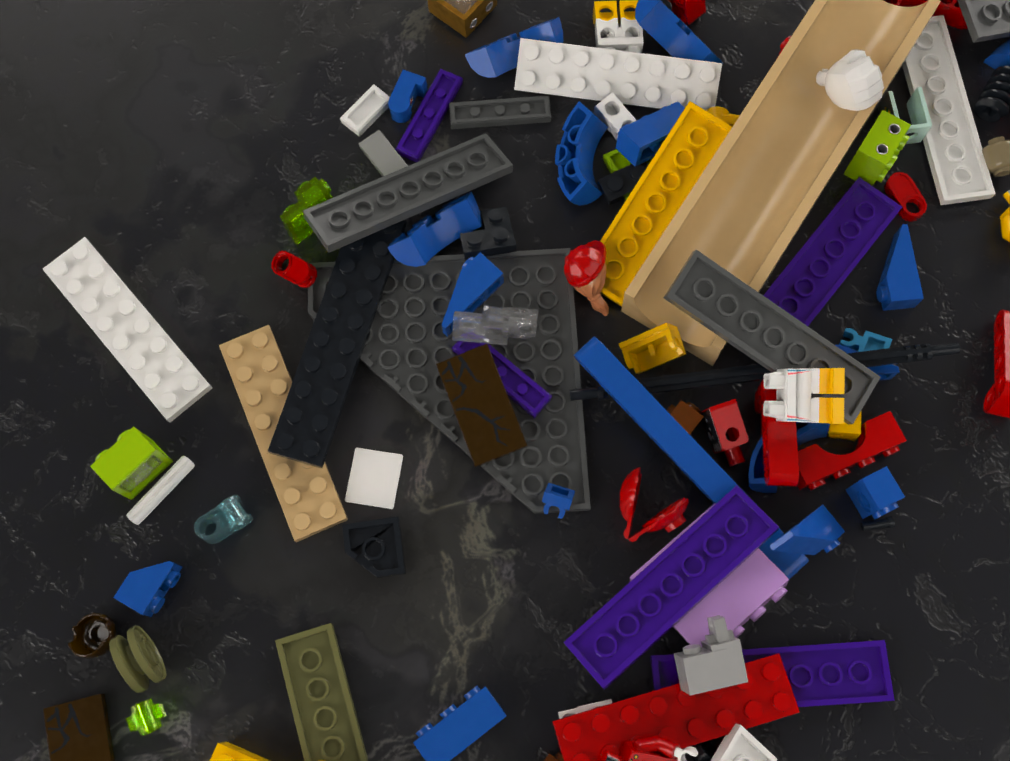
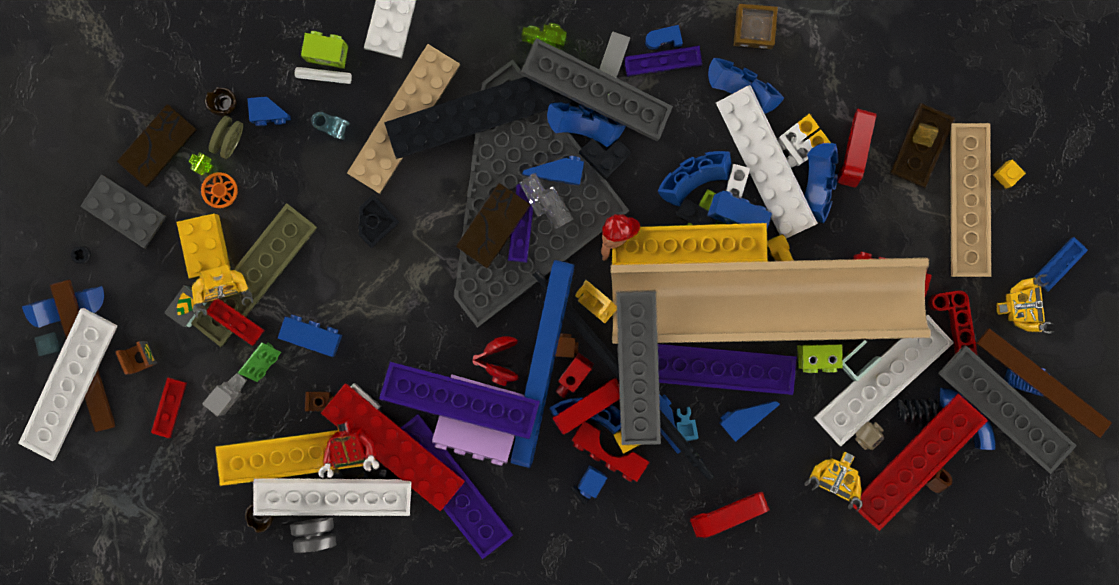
camera: 50 degrees right, 15 degrees up
(196, 718) = (219, 190): none -> orange wheel
(298, 270) = (503, 57): red piece -> none
(365, 110) = (639, 18): white tile -> none
(374, 478) = (413, 191): white sticker -> none
(500, 112) = (695, 104): dark grey tile -> none
(559, 497) = (469, 305): blue tile -> none
(714, 664) = (431, 449): light grey hinge -> none
(795, 392) = (614, 407): white hips -> none
(811, 535) = (542, 459): blue slope -> none
(852, 81) = (836, 316): white piece -> none
(903, 190) = (807, 388): red piece -> none

